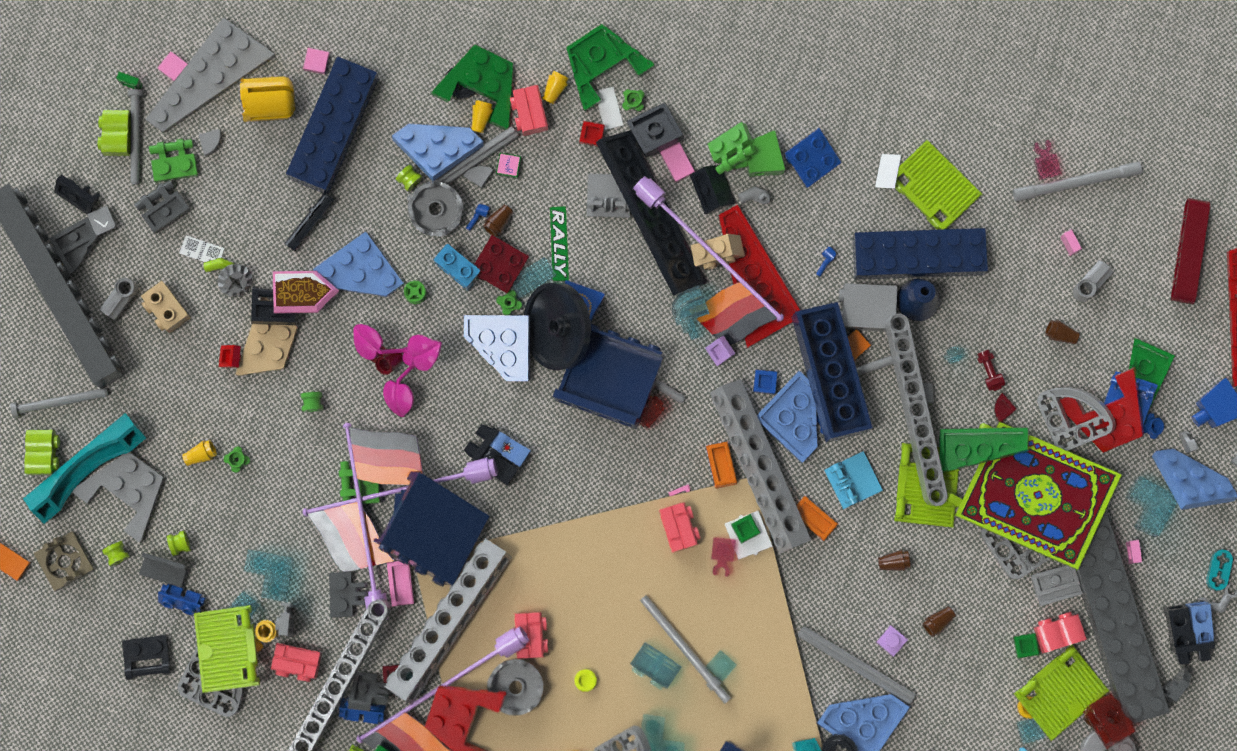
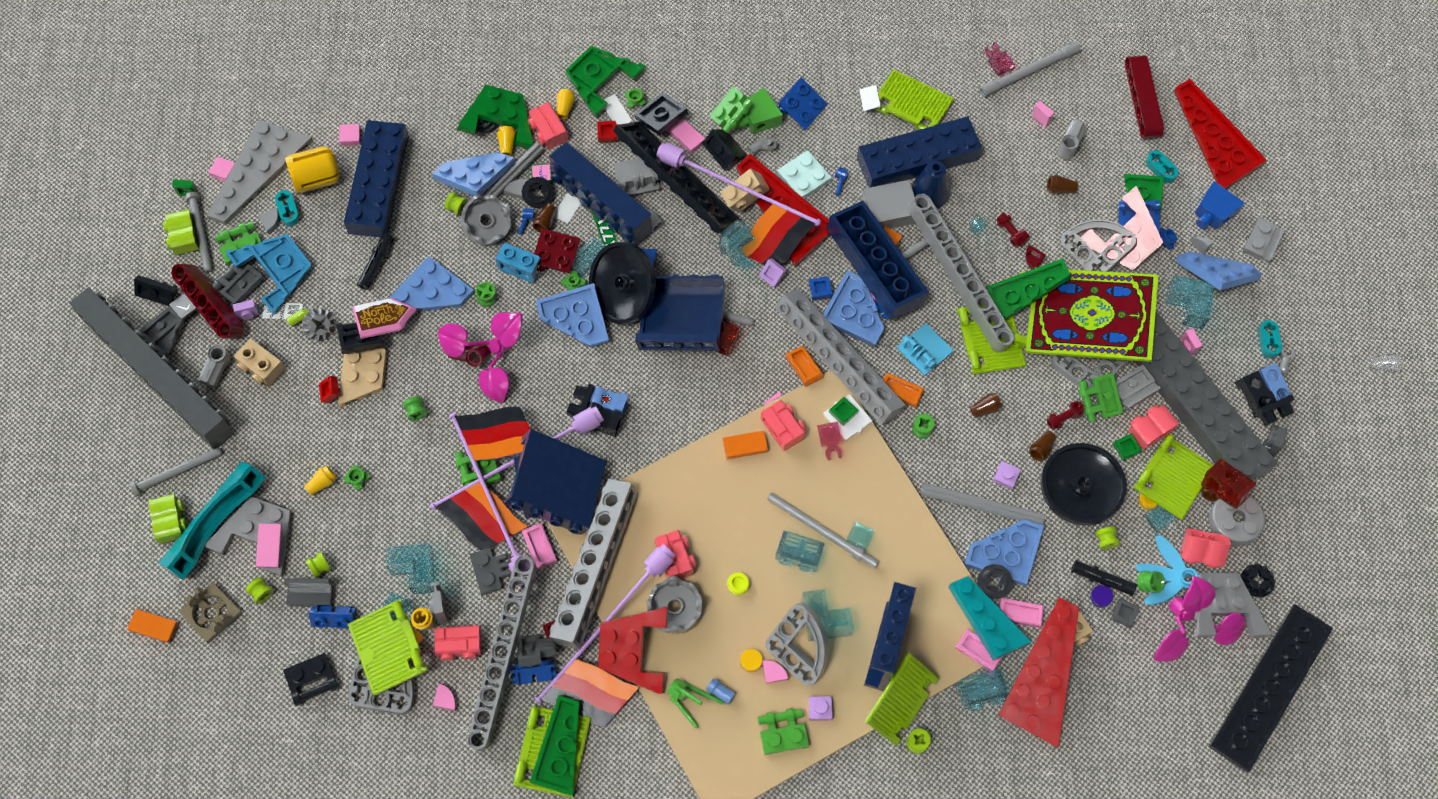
camera: 15 degrees left, 15 degrees down
(127, 223) = (207, 301): none -> dark red beam
(134, 511) = (268, 546): none -> bright pink tile
(164, 243) = (246, 310): none -> lavender plate
(211, 196) = (282, 263): none -> dark azure wing
(225, 132) = (283, 209): none -> teal beam
(270, 713) = (444, 698): none -> bright pink tile
(498, 198) = (533, 184): none -> black gear
(529, 209) = (567, 208): none -> white sticker
(563, 213) = (600, 195): none -> dark blue brick
(611, 253) = (656, 221): none -> light grey hinge
(634, 536) = (745, 444): none -> orange tile
(788, 243) = (804, 175): none -> light aqua plate
(819, 566) = (920, 430): none -> bright green wheel
(964, 675) = (1083, 484): none -> black dish
(969, 737) = (1107, 538): none -> lime wheel
(985, 592) = (1074, 412): none -> dark red bar
(1023, 587) = (1106, 395): none -> bright green plate
(1184, 338) = (1162, 166): none -> teal beam

